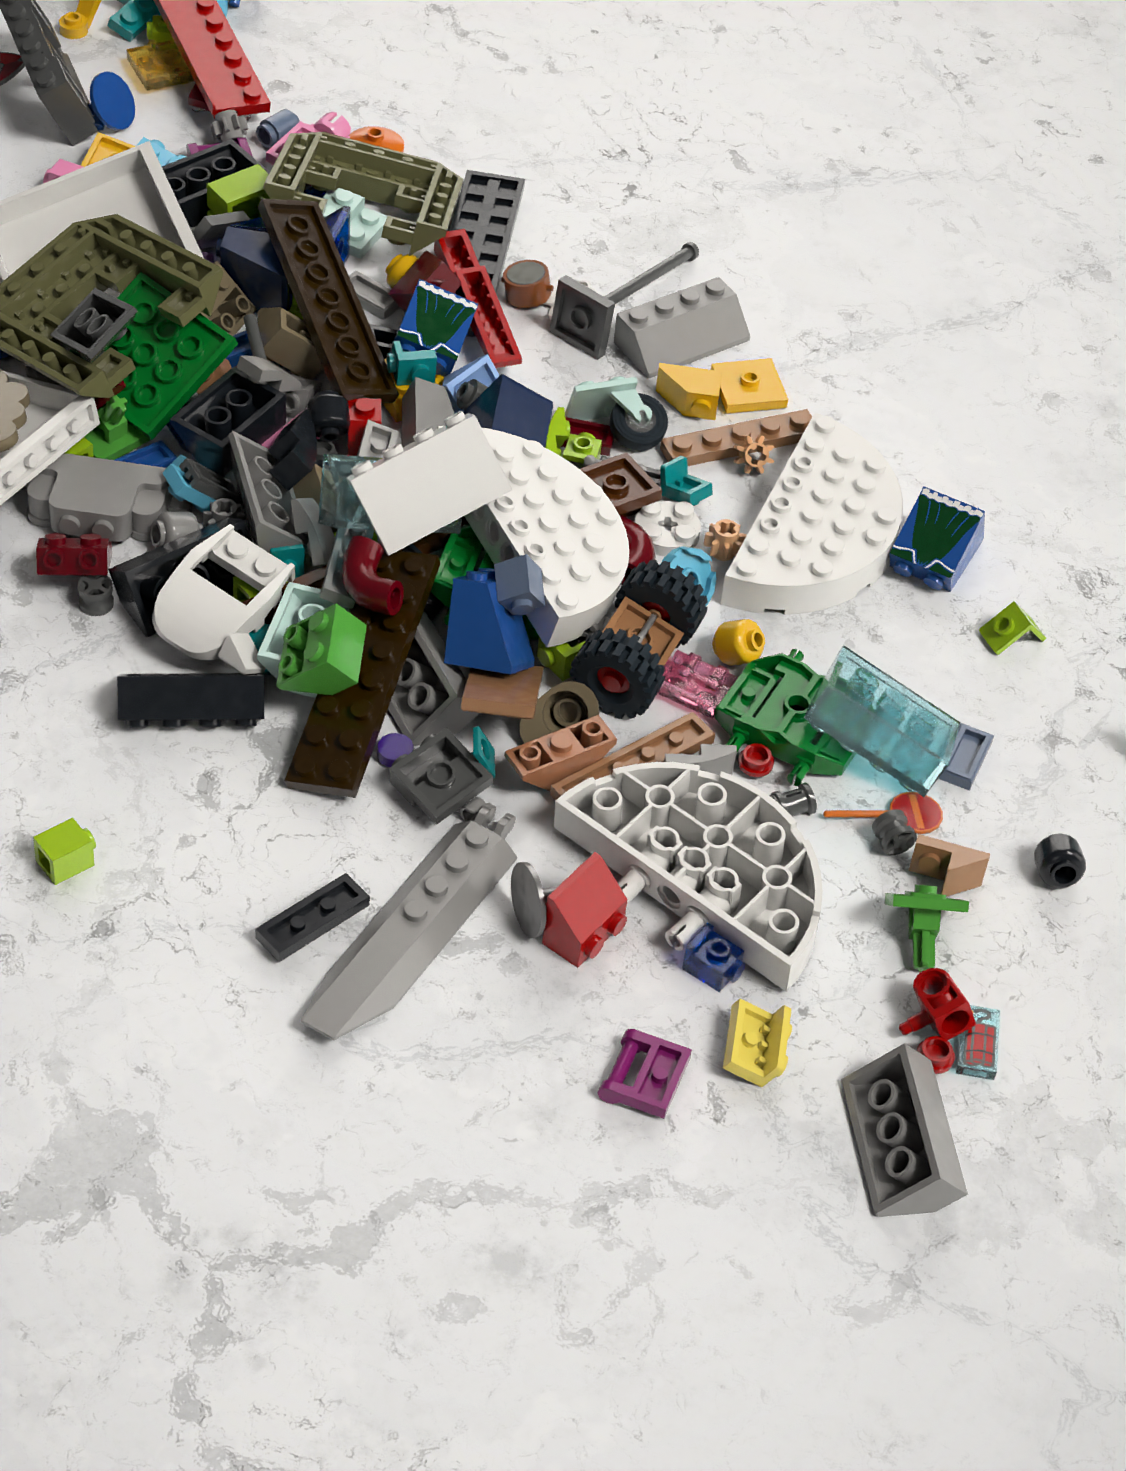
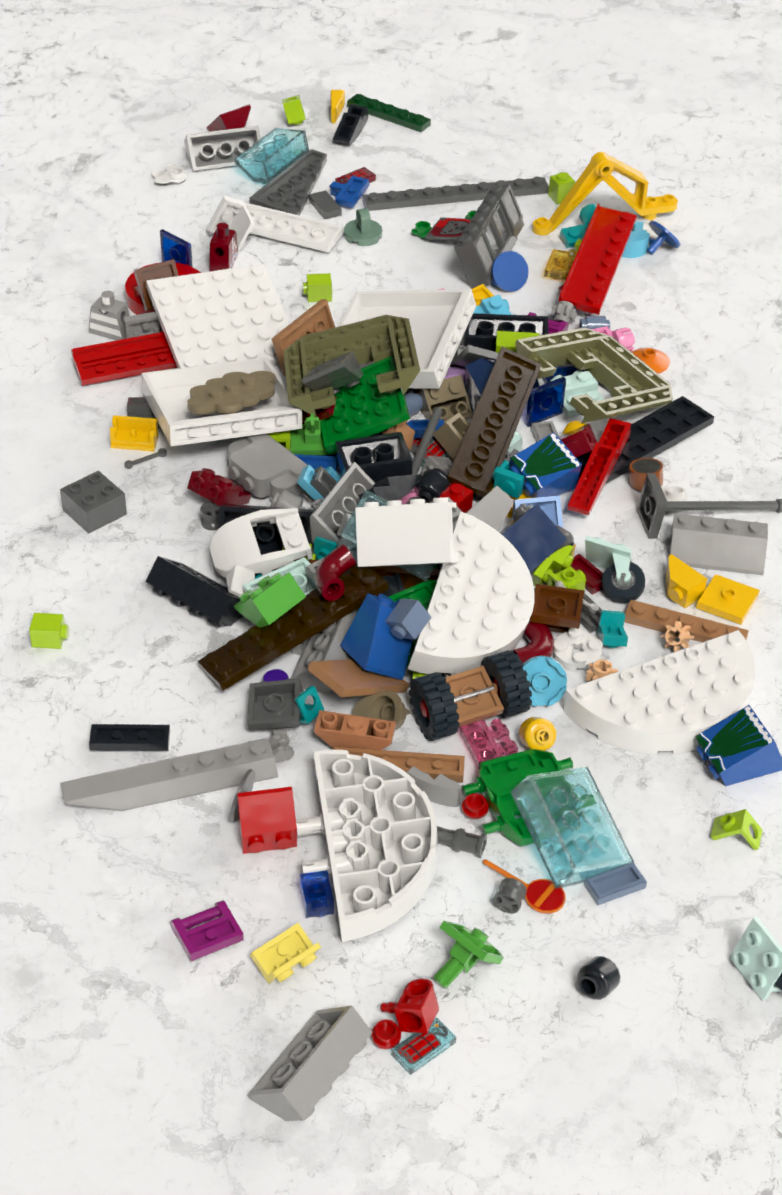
camera: 45 degrees right, 5 degrees down
(264, 372) = (421, 447): light grey slope -> none
(955, 864) = (521, 936): medium nougat slope -> none

